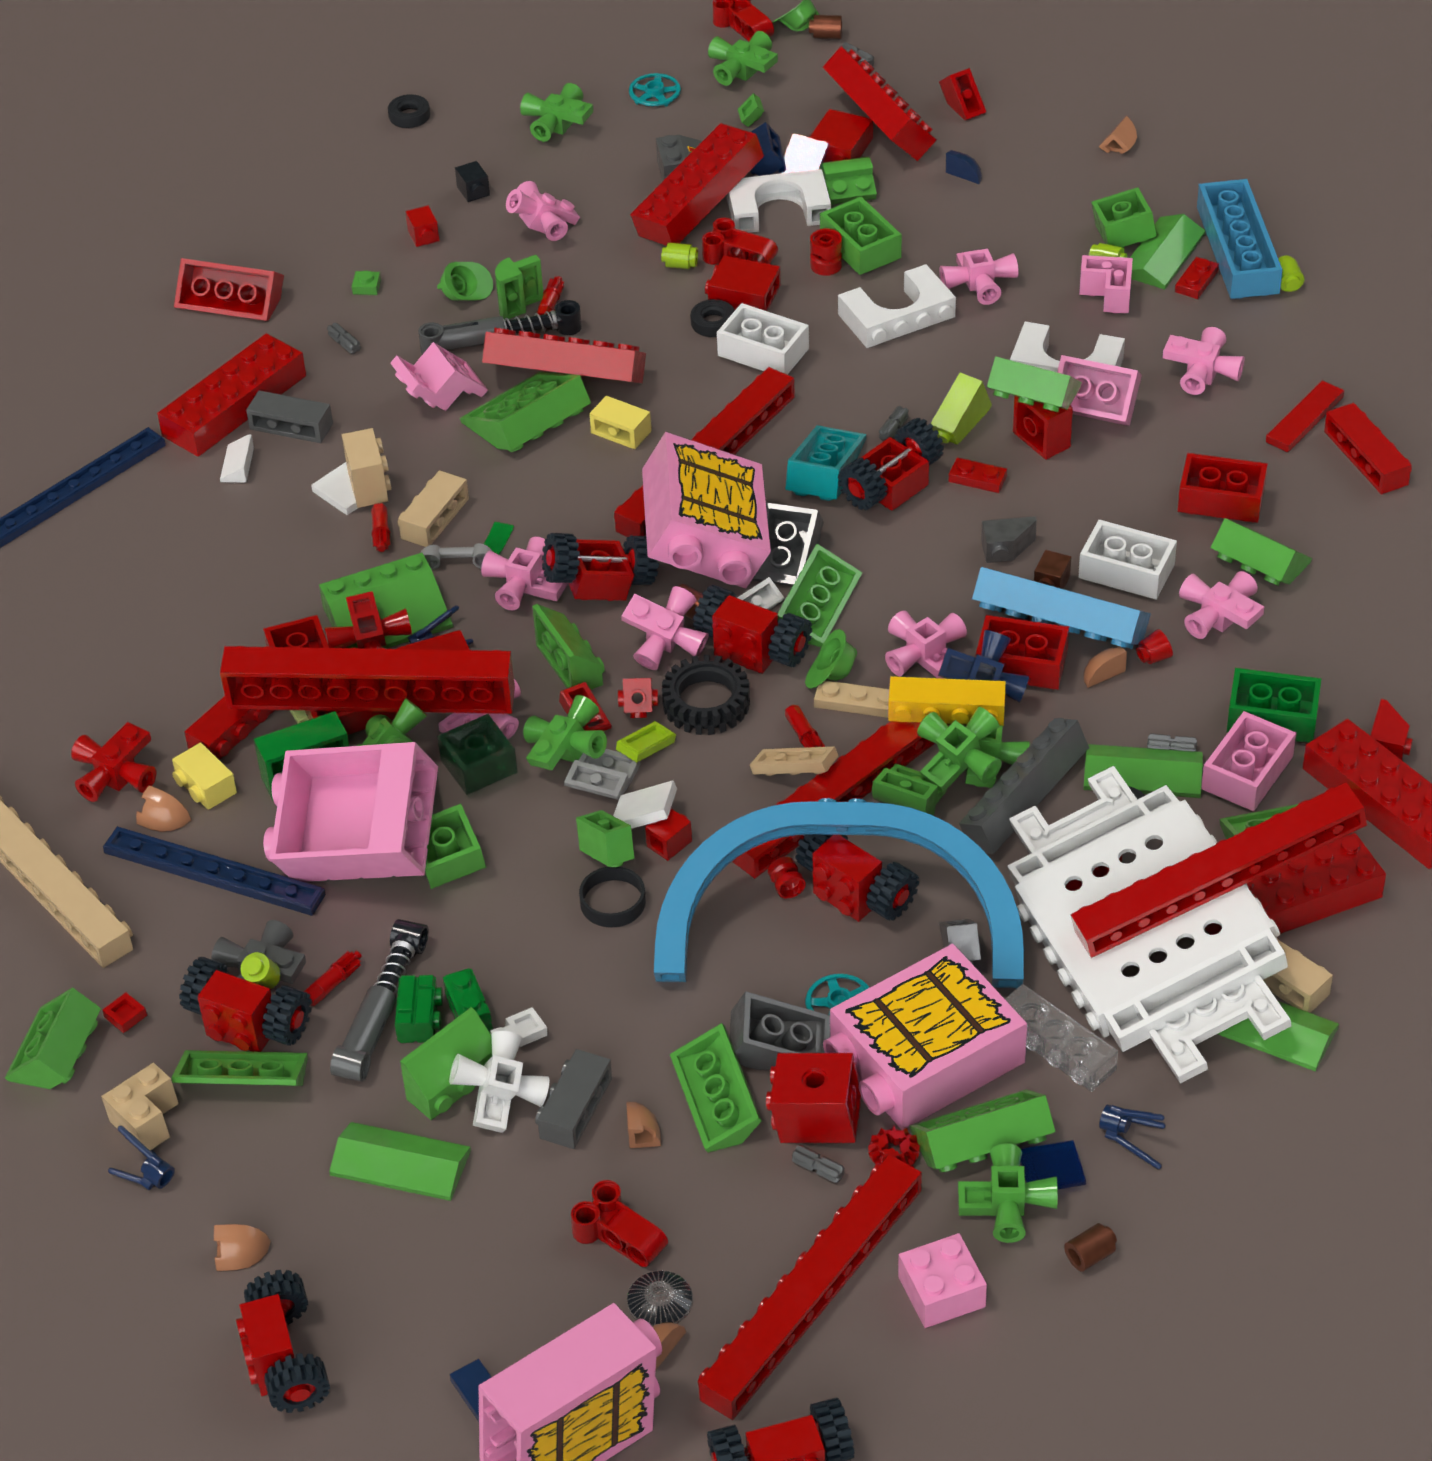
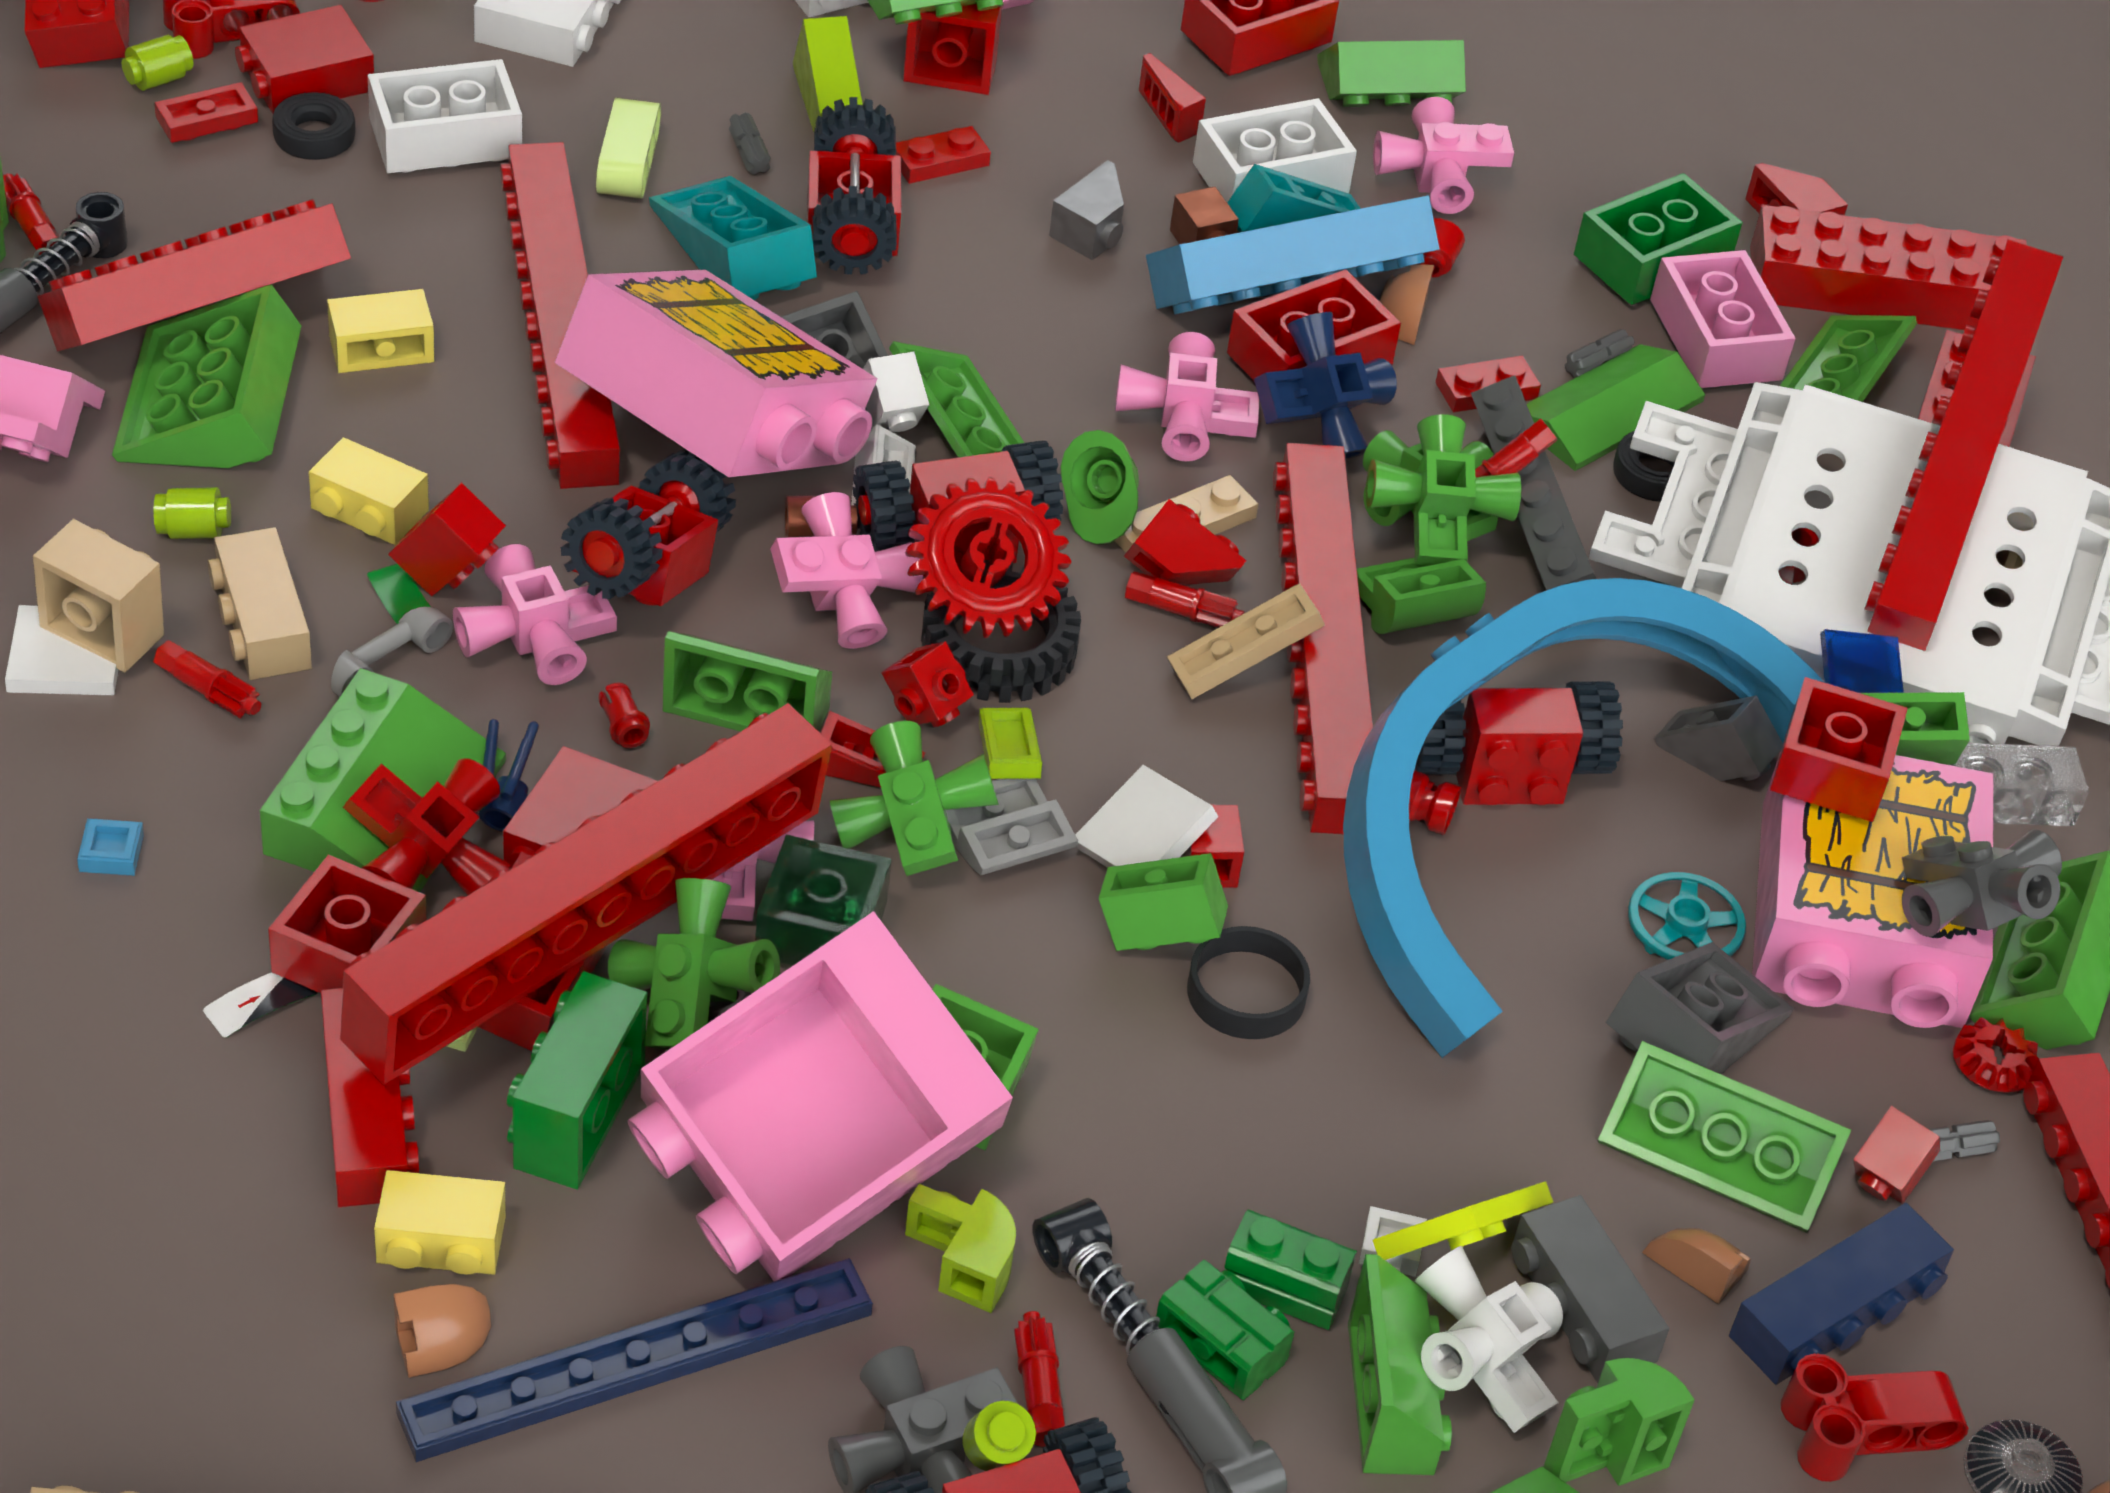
camera: 55 degrees left, 0 degrees up
(113, 762) = (270, 1303): red brick -> none
(272, 571) = (110, 847): none -> dark azure tile
(371, 916) = (975, 1242): none -> lime brick
(454, 457) = (191, 513): none -> lime brick
(498, 1145) = (1622, 1424): none -> bright green brick
(509, 639) = (627, 724): none -> red pin
(519, 521) = (449, 541): none -> red brick
(529, 487) = (369, 491): none -> light yellow brick
(555, 1037) = (1465, 1224): none -> neon yellow wing
(673, 289) = (206, 112): none -> red plate
(676, 1177) = (1842, 1293): none -> dark blue brick
(726, 669) = (964, 591): none -> red gear
(772, 1145) = (1895, 1156): none -> brick
(787, 564) = (899, 392): none -> white brick
(814, 1098) = (1878, 1046): red brick -> none
(823, 706) = (1184, 550): none -> red slope
(831, 397) = (628, 148): none -> yellowish green beam
(922, 1050) = (1980, 883): none -> dark grey brick
(944, 957) = (1839, 749): none -> red brick
(951, 699) = (1339, 444): yellow brick -> none
(1016, 752) = (1519, 451): none -> red piece
(1021, 980) = (1933, 725): none -> bright green brick
(1040, 948) = (1861, 661): none -> clear blue piece
(1098, 725) = (1460, 381): none -> plate
(1102, 582) = (1277, 198): none -> teal slope
(1121, 507) = (1171, 99): none -> red slope

